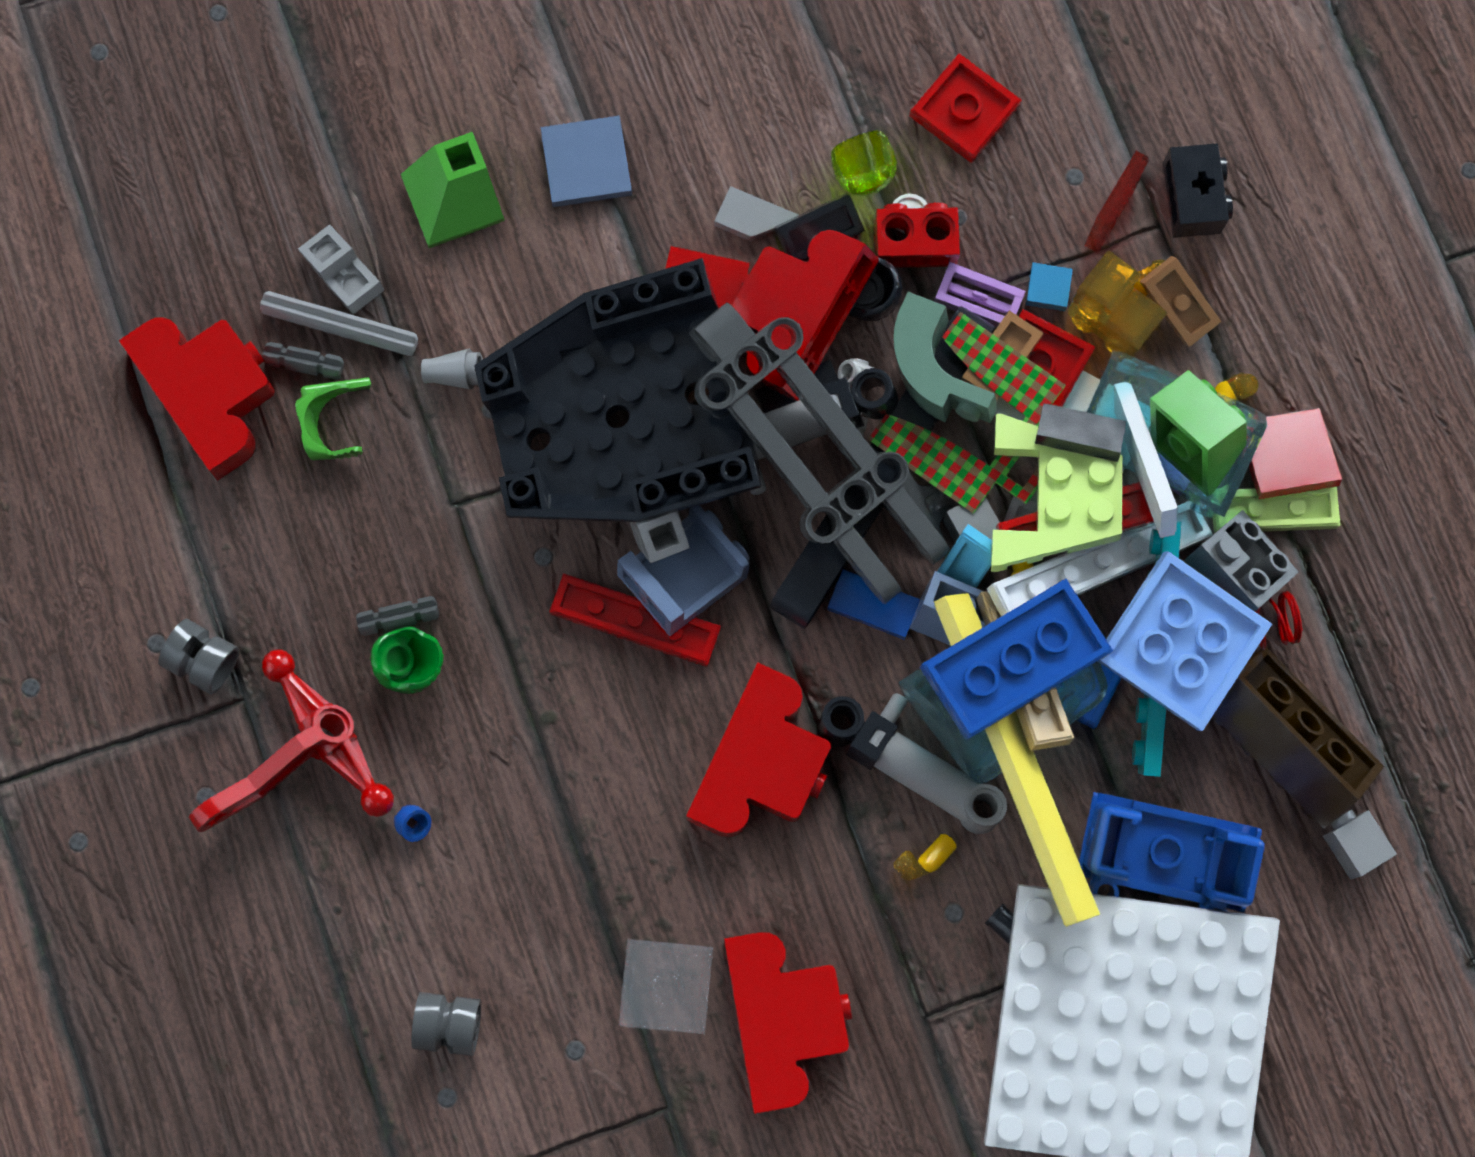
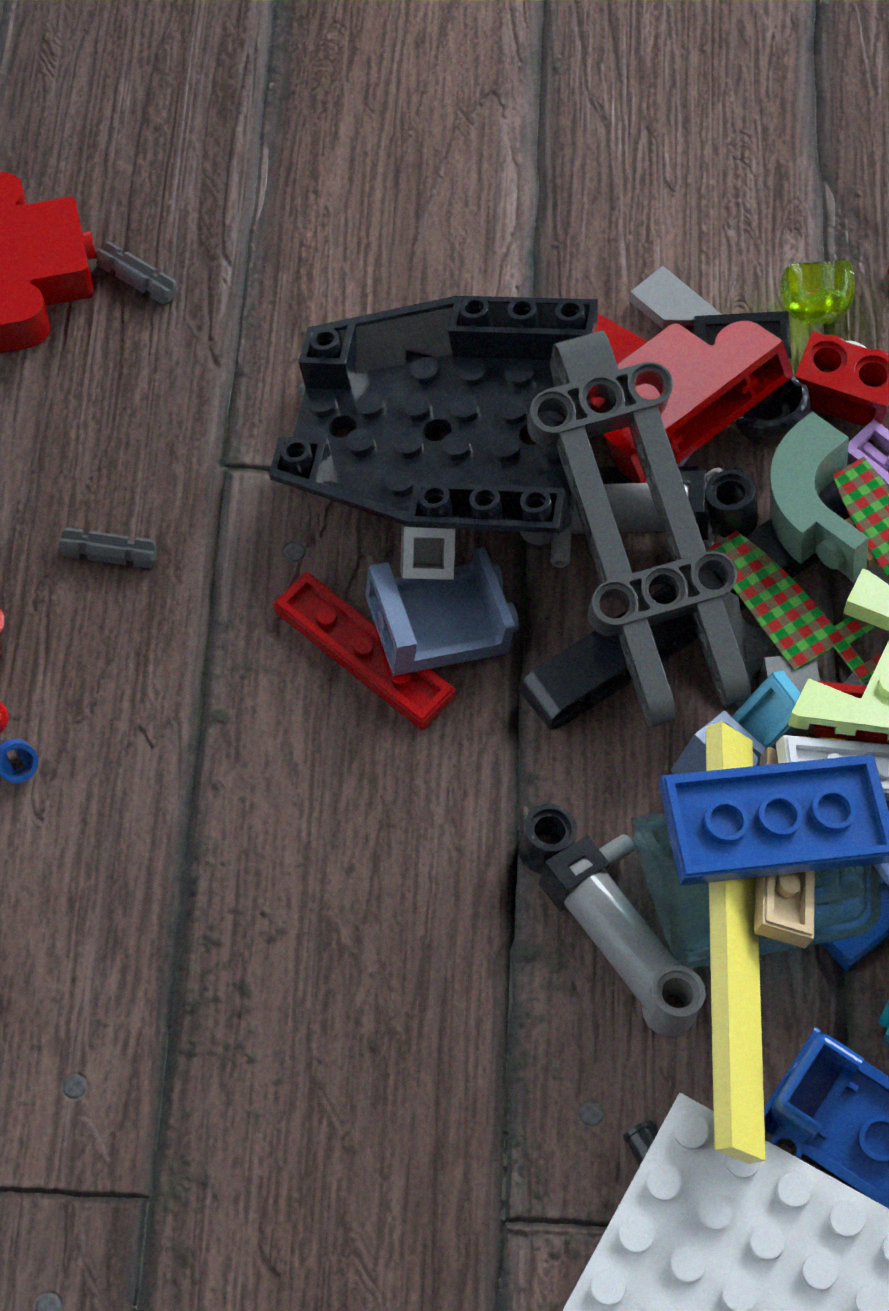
camera: 25 degrees right, 15 degrees down
(308, 411) = (117, 318): bright green helmet -> none
(339, 323) = (191, 252): light grey axle -> none
(341, 269) = (218, 205): light grey slope -> none
(406, 660) = (92, 588): green hair -> none
(452, 191) = (367, 168): bright green slope -> none
(452, 369) = (282, 331): light grey cone -> none
(586, 161) = (520, 194): sand blue tile -> none
(666, 986) = (212, 1055): clear tile -> none
(761, 759) = (435, 845): red brick -> none
(782, 1018) = (330, 1146): red brick -> none
(857, 602) = (623, 725): blue tile -> none
(928, 862) = (581, 1037): arm -> none

